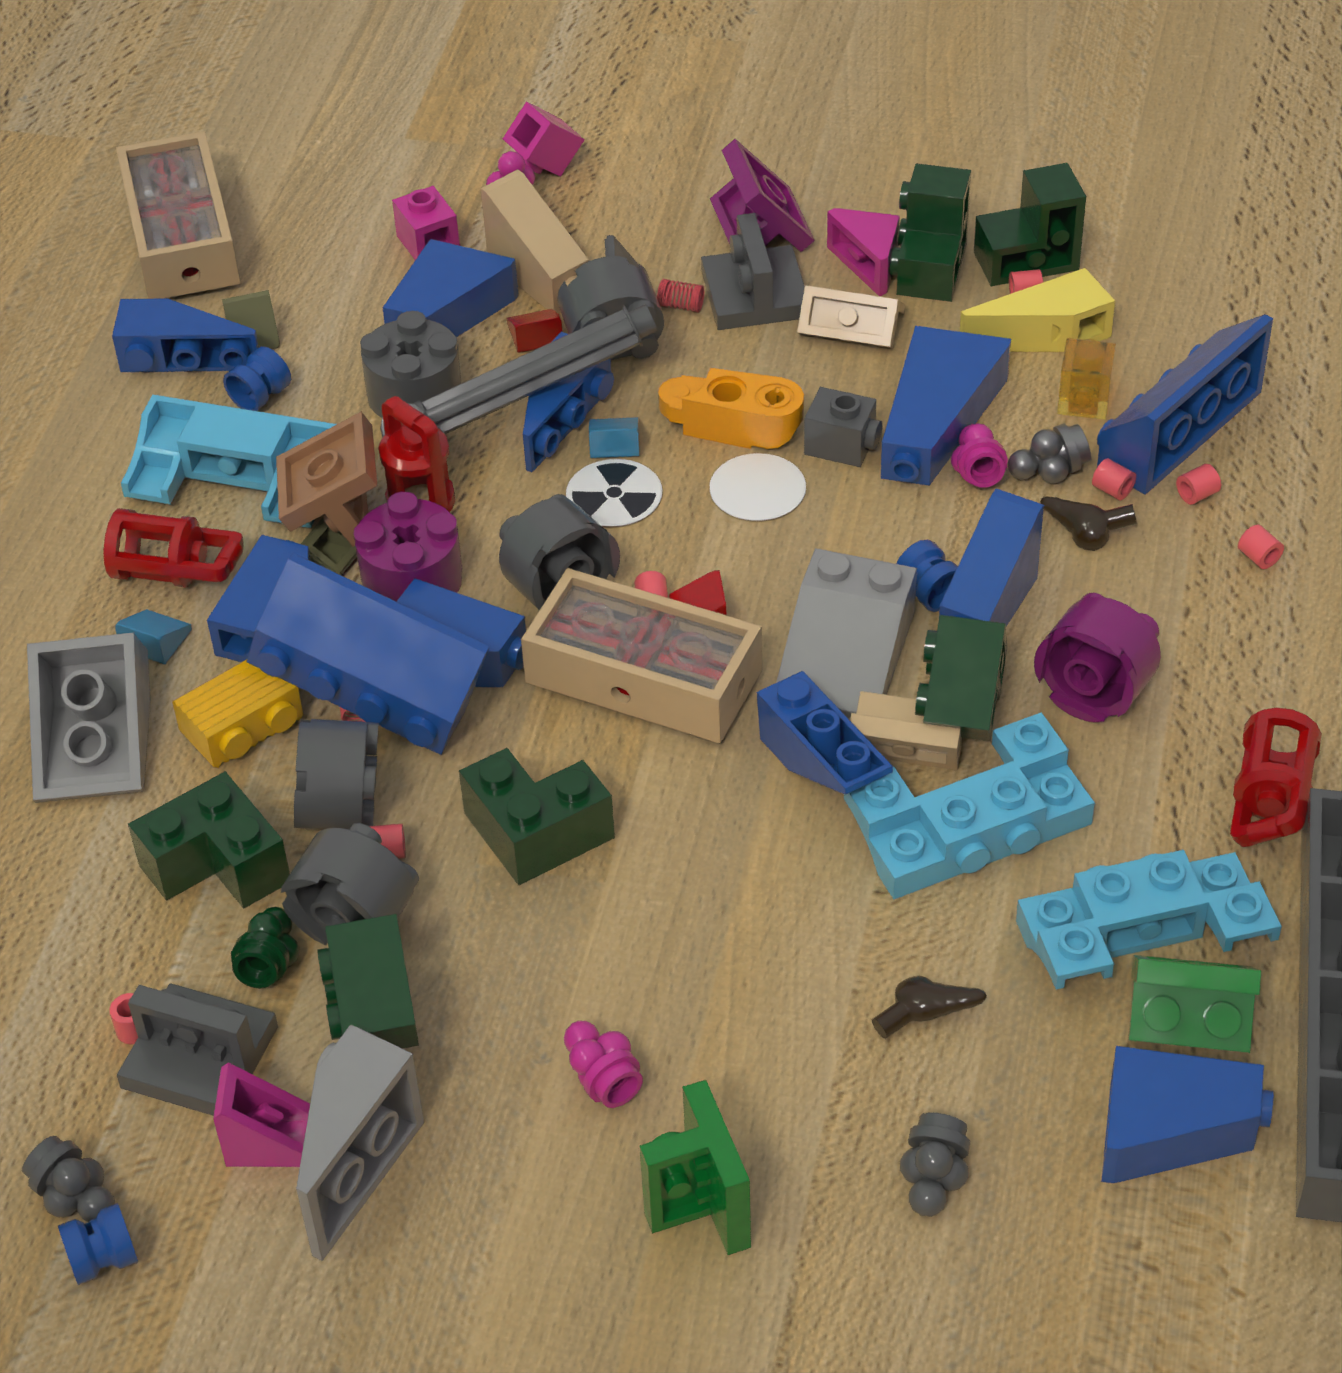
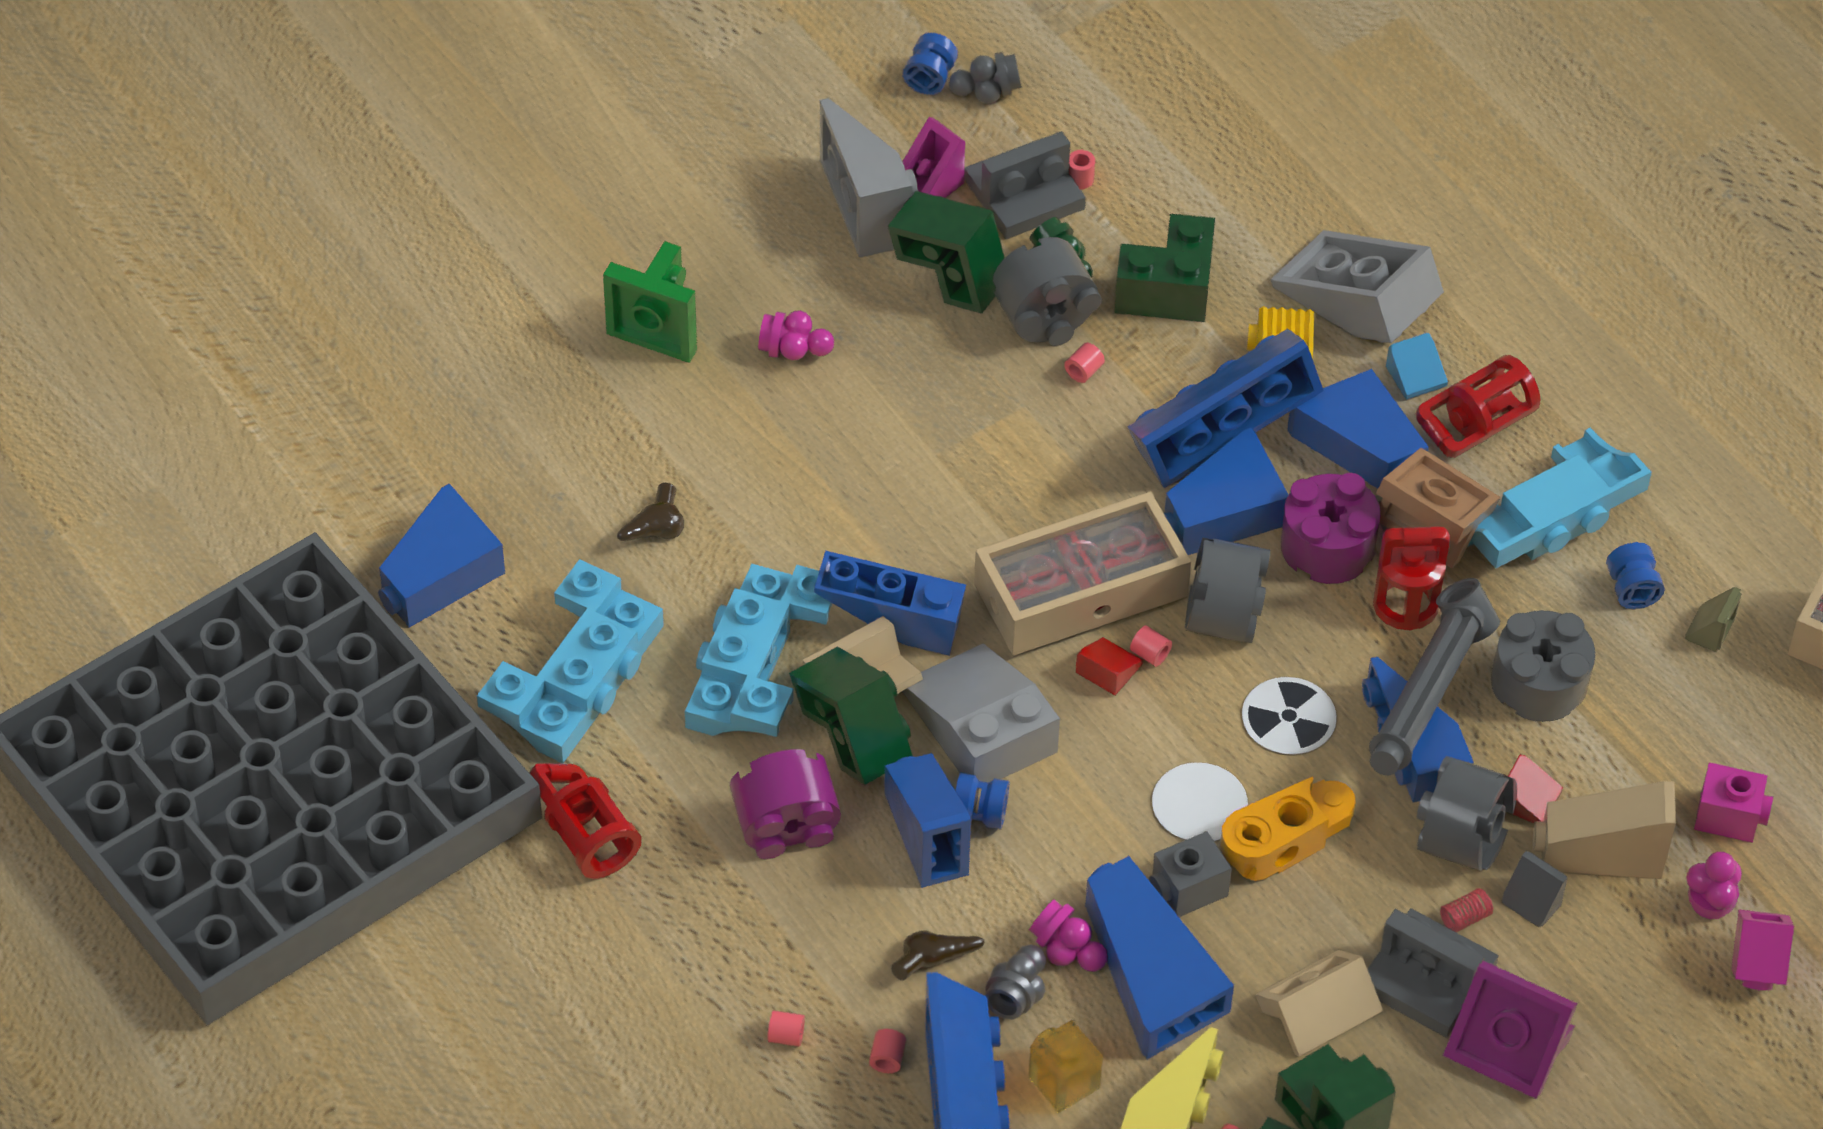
camera: 130 degrees right, 5 degrees up
(177, 338) = (1748, 556): blue slope -> none
(335, 774) = (1152, 346): dark grey brick -> none
(454, 286) = (1622, 741): blue slope -> none
(536, 823) = (1015, 424): dark green brick -> none
(614, 437) = (1343, 747): dark azure slope -> none
(864, 244) = (1407, 1063): dark pink slope -> none
(935, 1161) = (547, 433): dark grey piece -> none
(1193, 1003) = (497, 624): green bracket -> none

